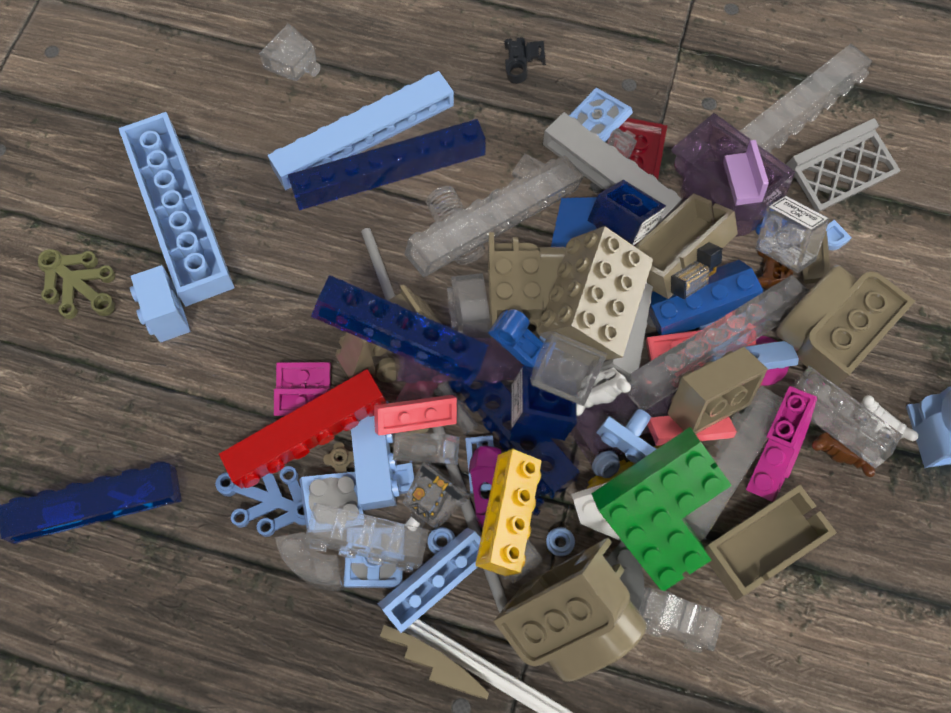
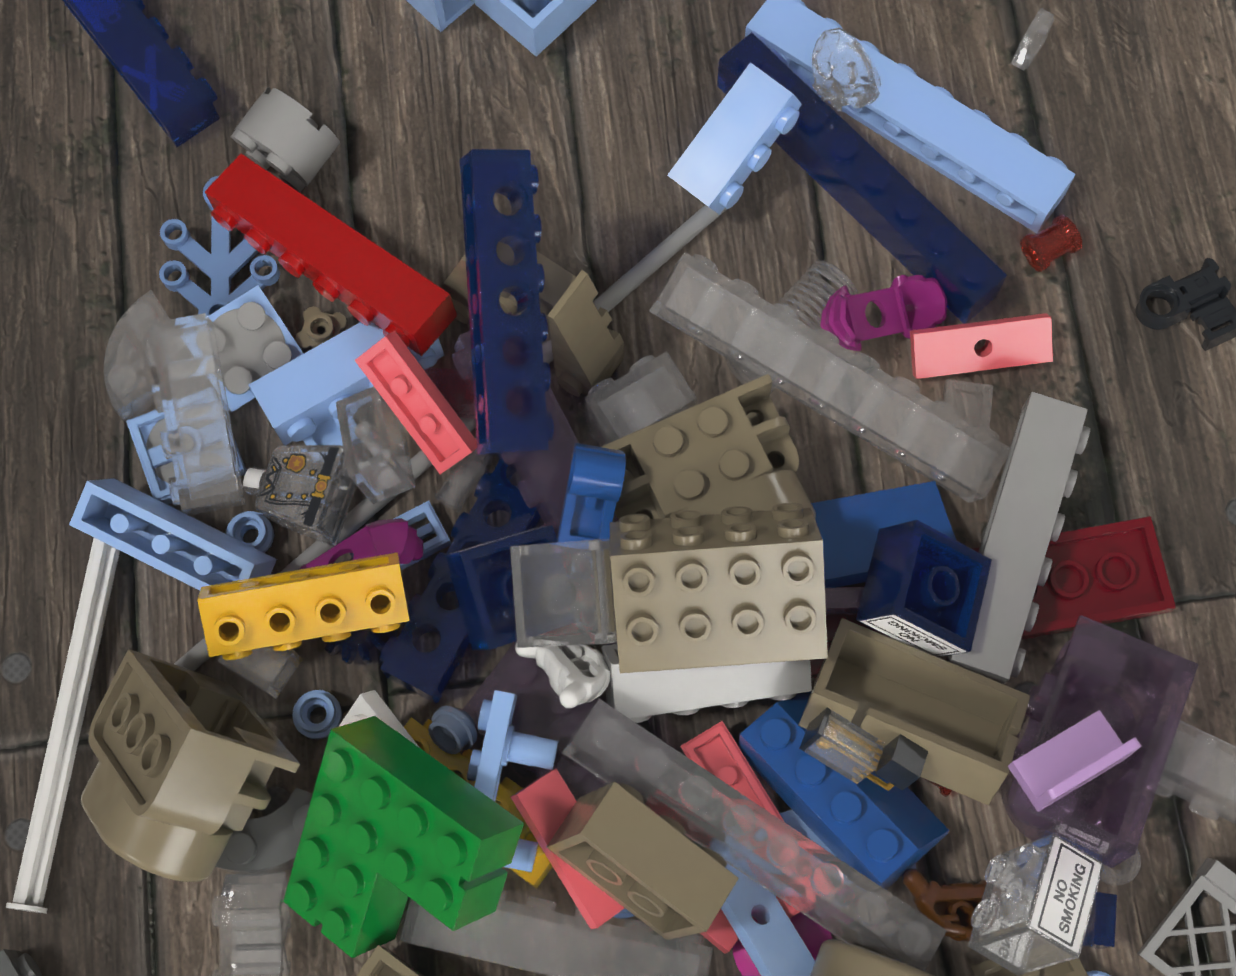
camera: 70 degrees right, 5 degrees up
(216, 430) = (284, 136): none -> light grey brick
(299, 384) = (413, 223): dark pink slope -> none
(335, 141) = (844, 71): none -> clear hat
(346, 203) = (736, 139): none -> light blue brick
(353, 63) = (1033, 39): none -> clear tile
(444, 670) = (52, 616): dark tan slope -> none
(464, 99) = (1051, 243): none -> clear red bush
(468, 170) = (904, 307): none -> magenta piece
(503, 149) = (1007, 344): none -> coral tile
(601, 113) = (1127, 478): light blue piece -> none
(623, 141) = (1082, 537): clear tile -> none

